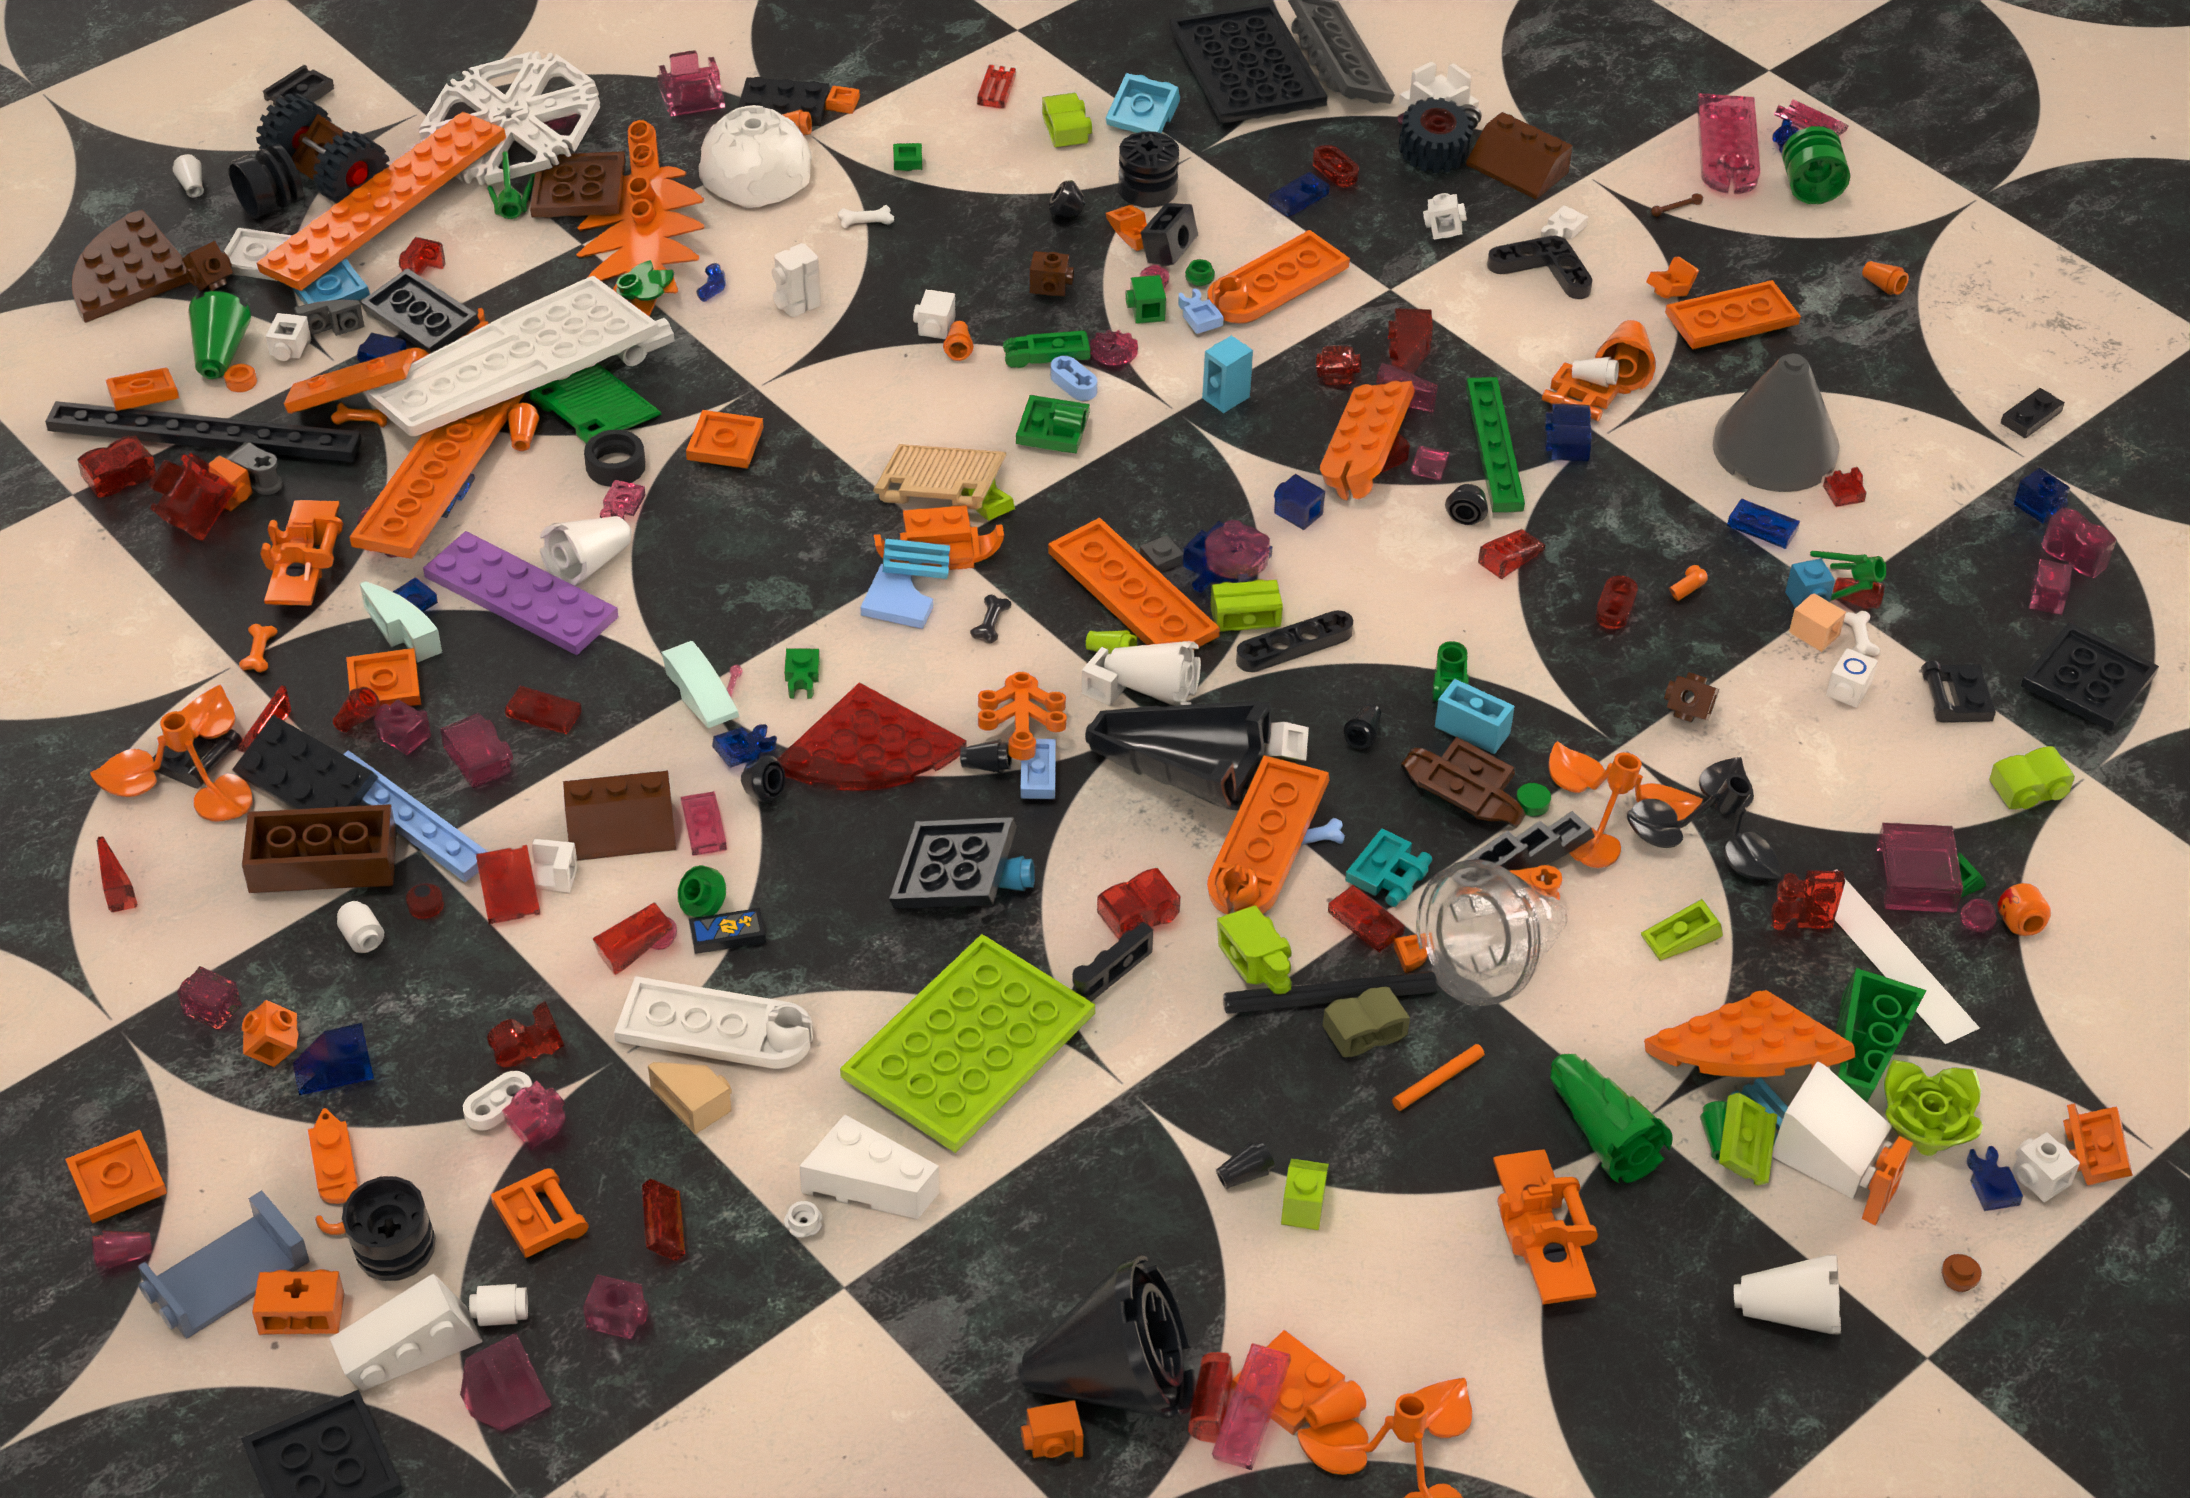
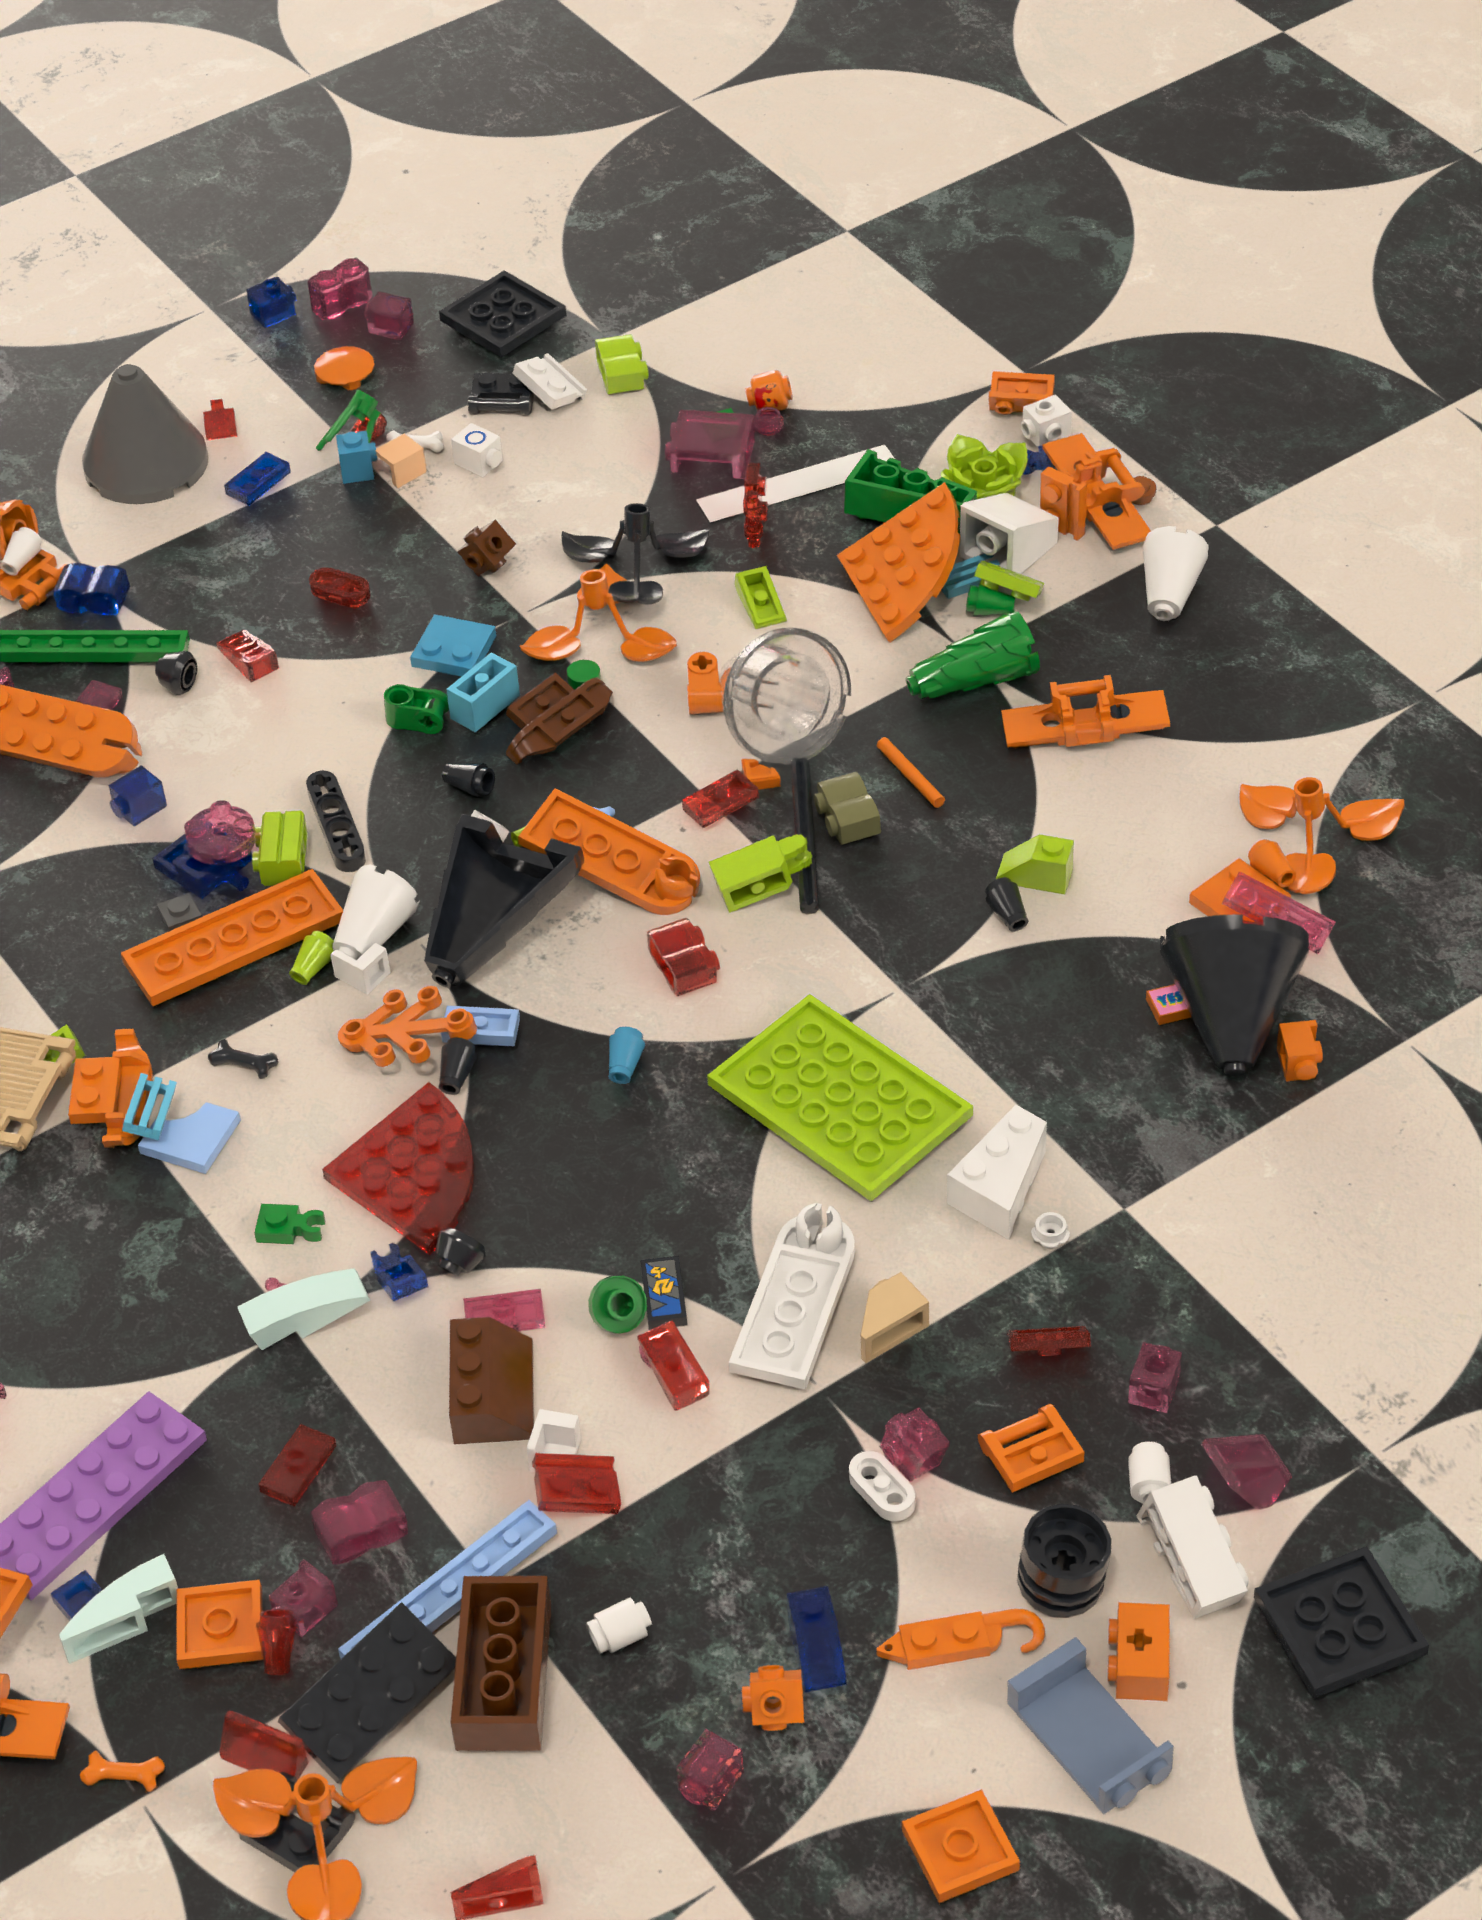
camera: 80 degrees left, 0 degrees up
(120, 1247) = (1061, 1833): clear pink cone -> none
(424, 900) = (580, 1570): clear red tile -> none
(515, 1041) = (794, 1451): clear red leg -> none
(582, 546) = (51, 1417): white cone -> none
(953, 863) = (612, 1090): black plate -> none
(1113, 963) = (755, 978): black plate -> none
(1380, 860) = (651, 782): teal plate -> none
(1537, 844) = (655, 683): black slope -> none
(1555, 697) = (452, 645): none -> dark azure plate
(1694, 579) = (323, 534): orange arm -> none
(1927, 1211) = (1108, 503): none -> orange piece
(1963, 567) = (344, 367): none -> orange dish
(1980, 722) = (549, 381): none -> white plate
(2032, 412) = (151, 293): black plate -> none

